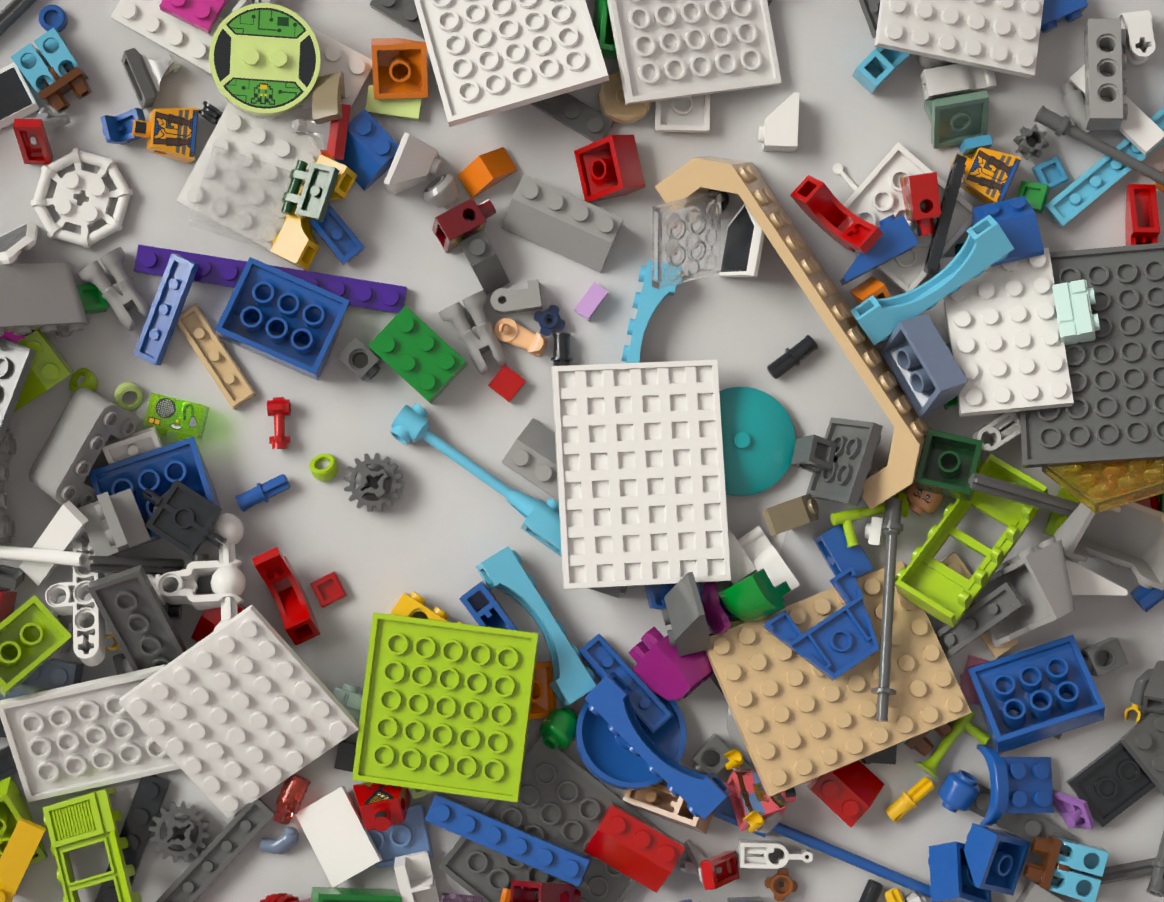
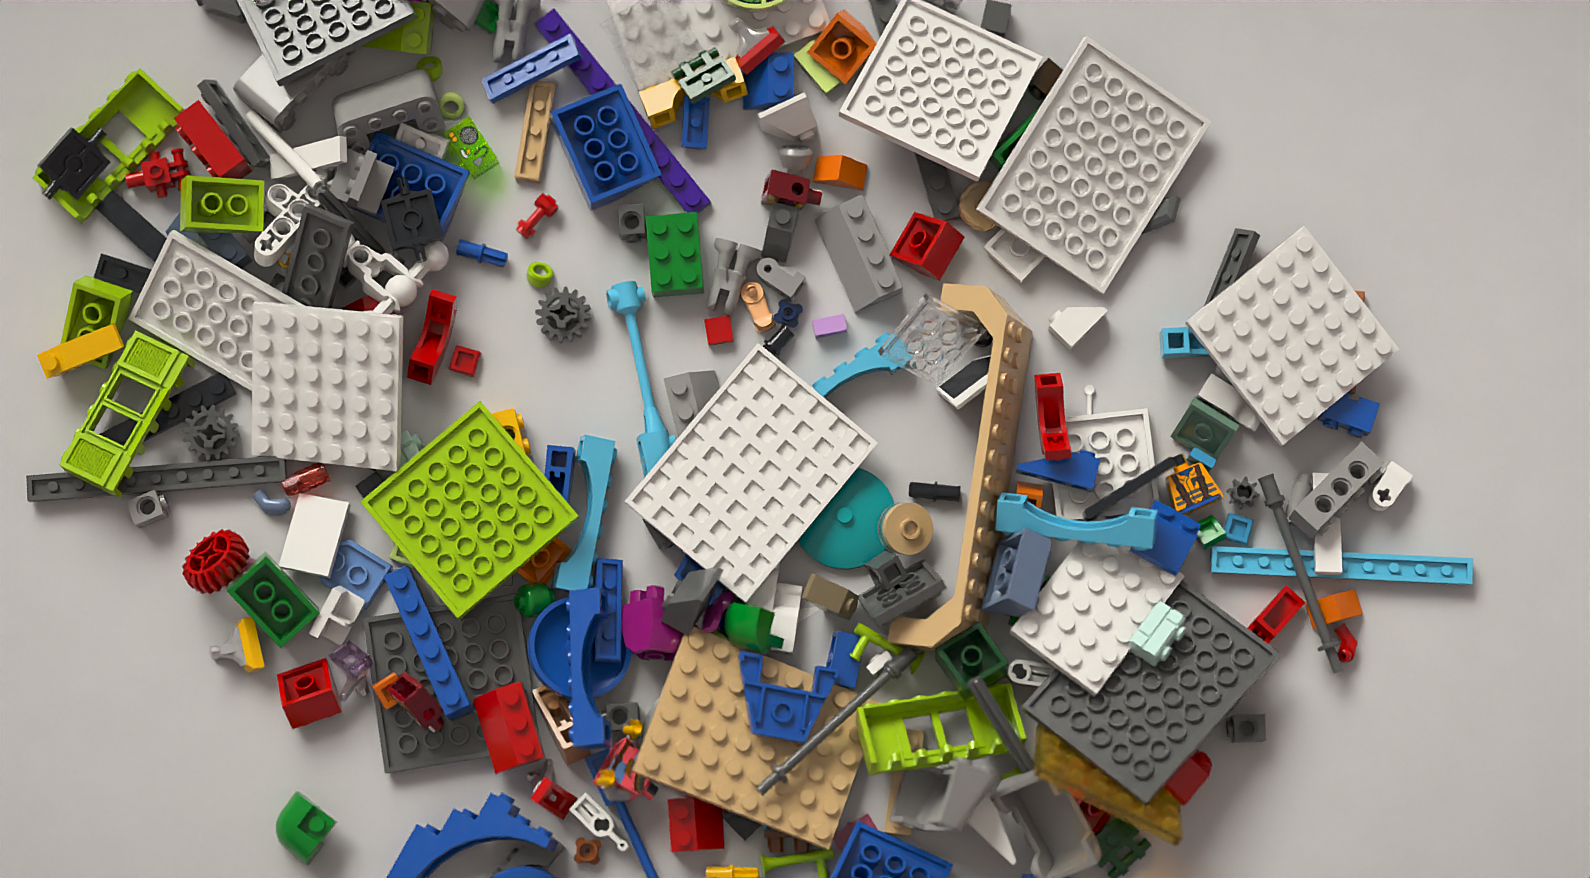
camera: 45 degrees right, 5 degrees down
(327, 98) = (773, 22): dark tan slope -> none
(382, 804) = (365, 539): red torso -> none
(797, 407) = (905, 528): none -> tan piece
(918, 189) = (1127, 450): red torso -> none
(922, 501) = (933, 673): nougat head -> none
(980, 619) = (894, 789): dark grey plate -> none

